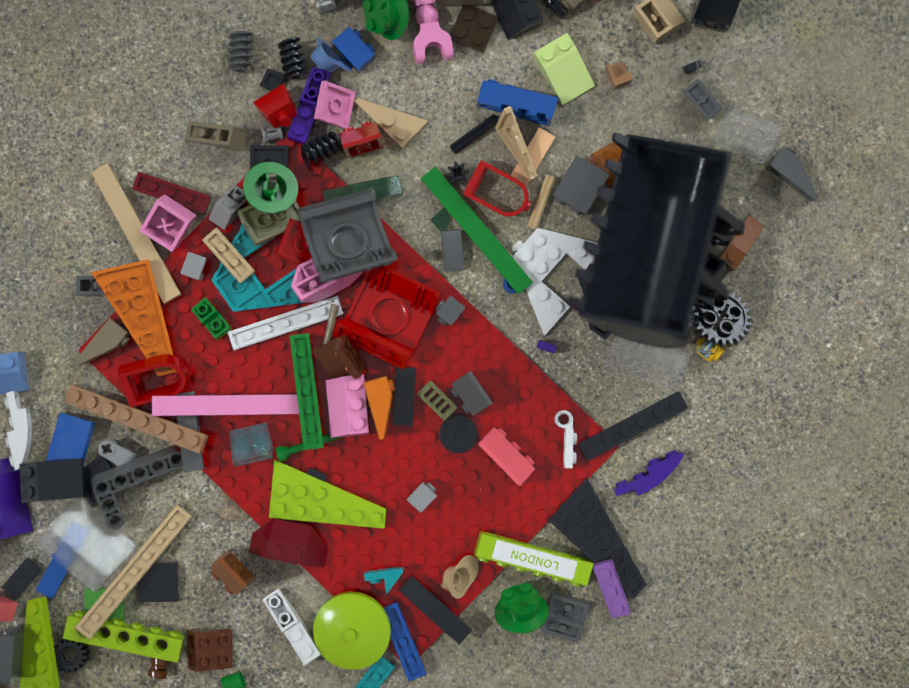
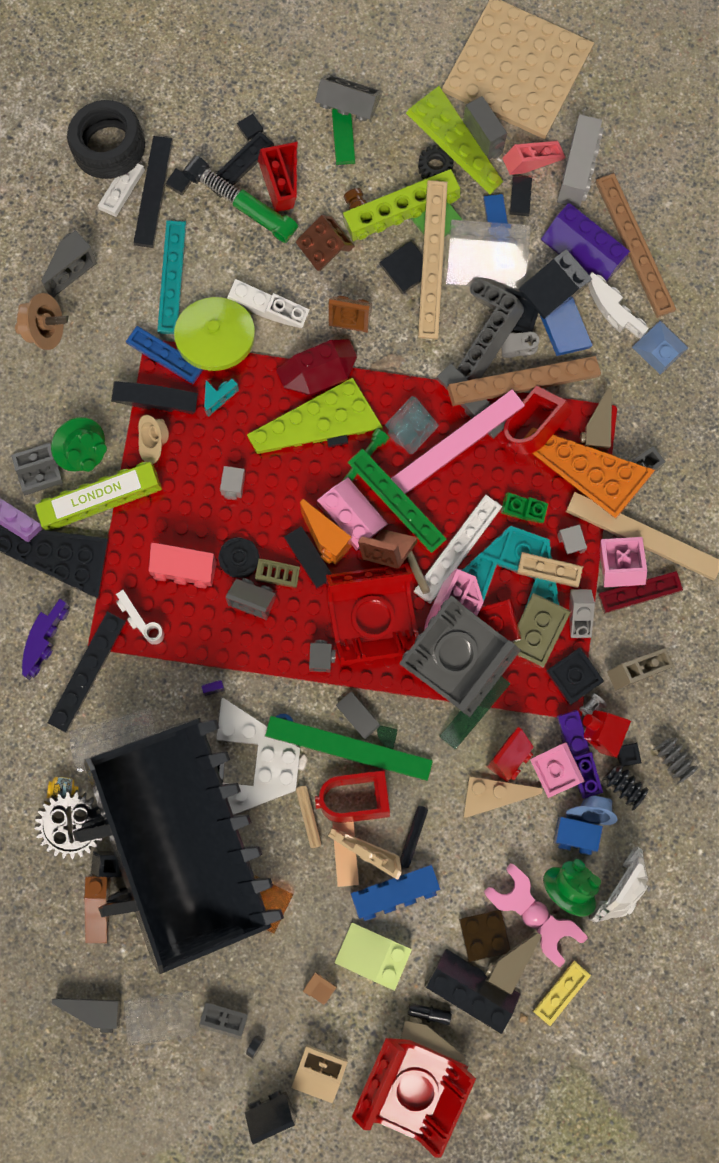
camera: 140 degrees right, 10 degrees down
(270, 187) = (557, 649): green piece -> none
(321, 147) = (541, 721): black piece -> none
(459, 178) = (406, 783): black gear -> none
(580, 185) = (283, 855): dark grey brick -> none

